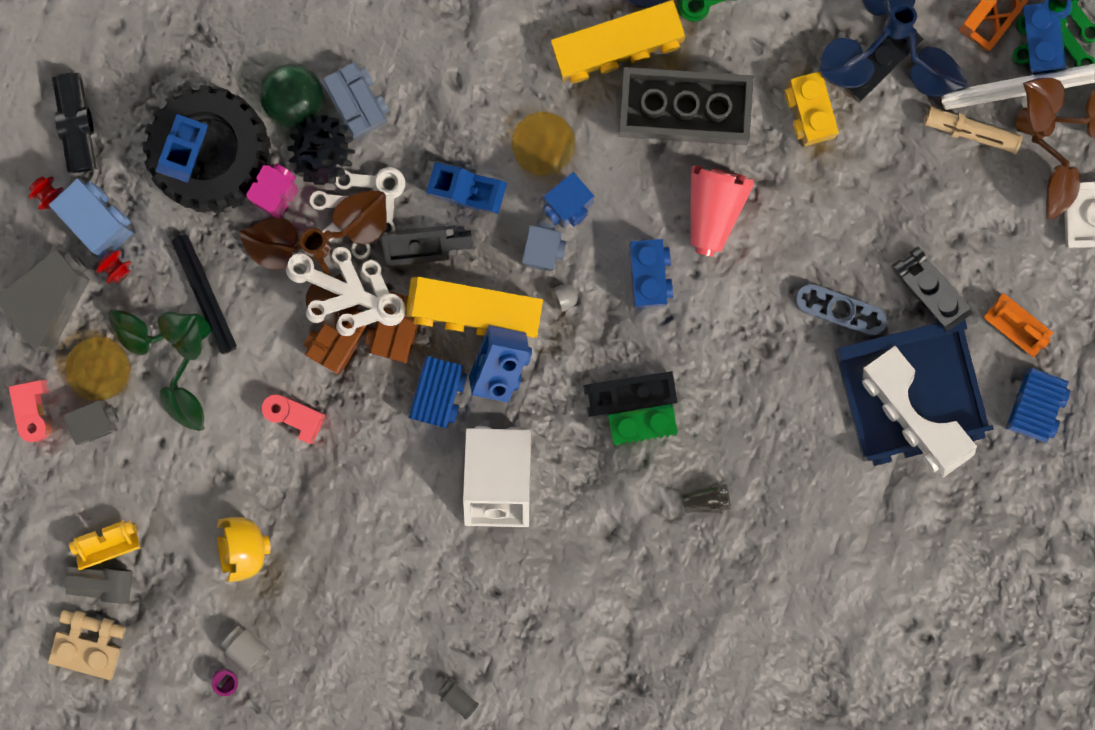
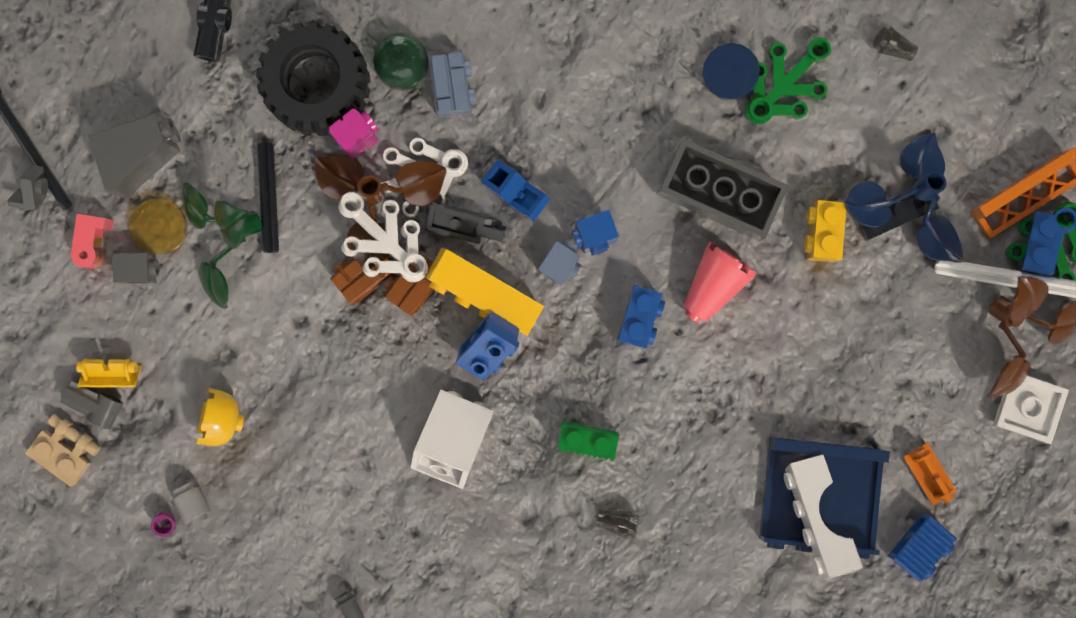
camera: 20 degrees right, 0 degrees up
(91, 219) = (195, 102): medium blue brick -> none
(182, 148) = (288, 68): blue brick -> none
(285, 410) = (304, 324): coral leg -> none
(322, 151) = (407, 114): black gear -> none
(437, 392) = (428, 350): blue brick -> none
(543, 143) = (592, 177): clear yellow tile -> none
(564, 297) = (562, 310): light grey hinge -> none
(618, 41) = (686, 116): yellow brick -> none
(632, 393) = (589, 411): black plate -> none
(859, 327) = (808, 414): sand blue beam -> none
(932, 290) = (870, 419): plate -> none
(958, 126) = (942, 290): tan pin -> none

